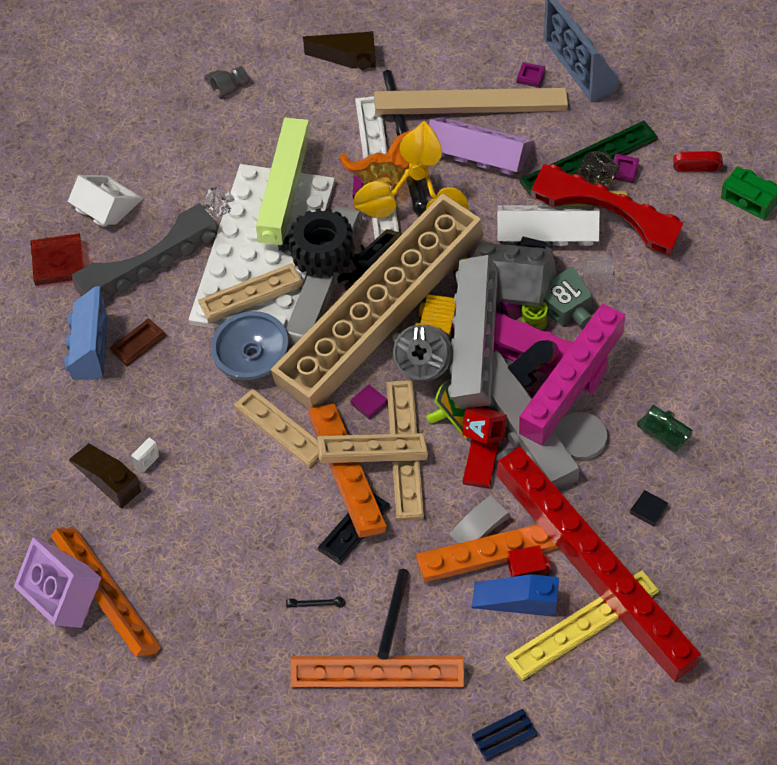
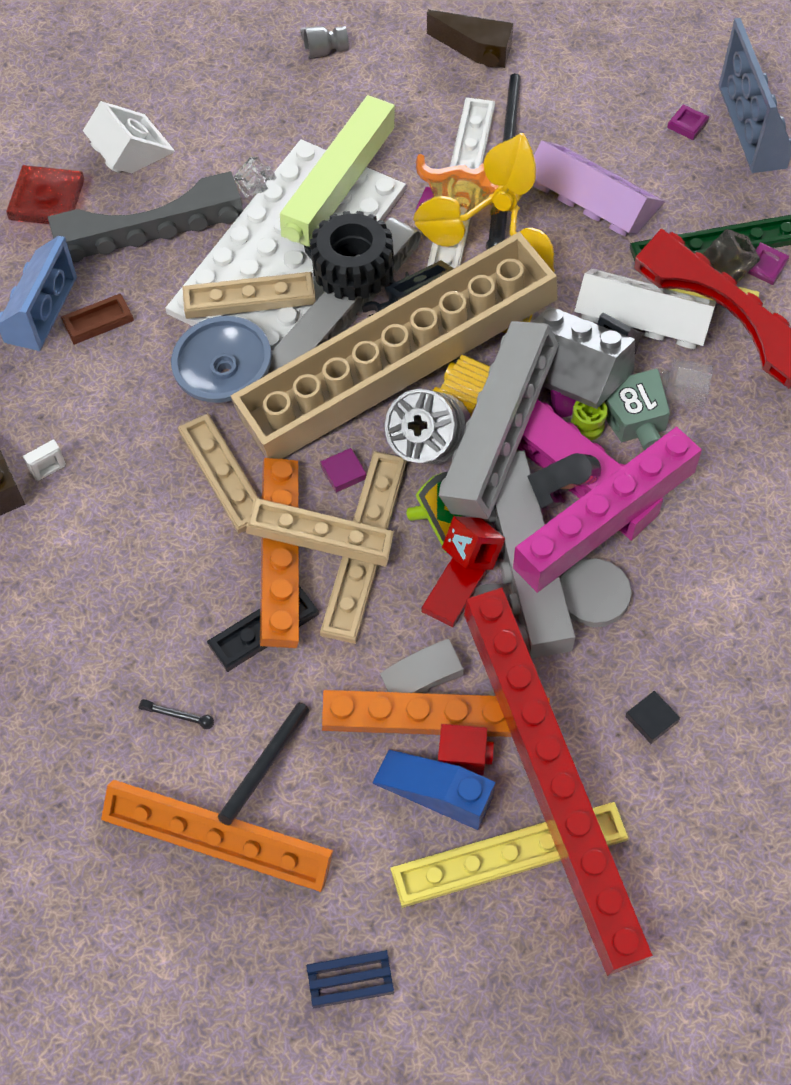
camera: 15 degrees right, 5 degrees up
(470, 101) = (603, 134): tan tile -> none
(665, 428) = (708, 615): clear green hips -> none

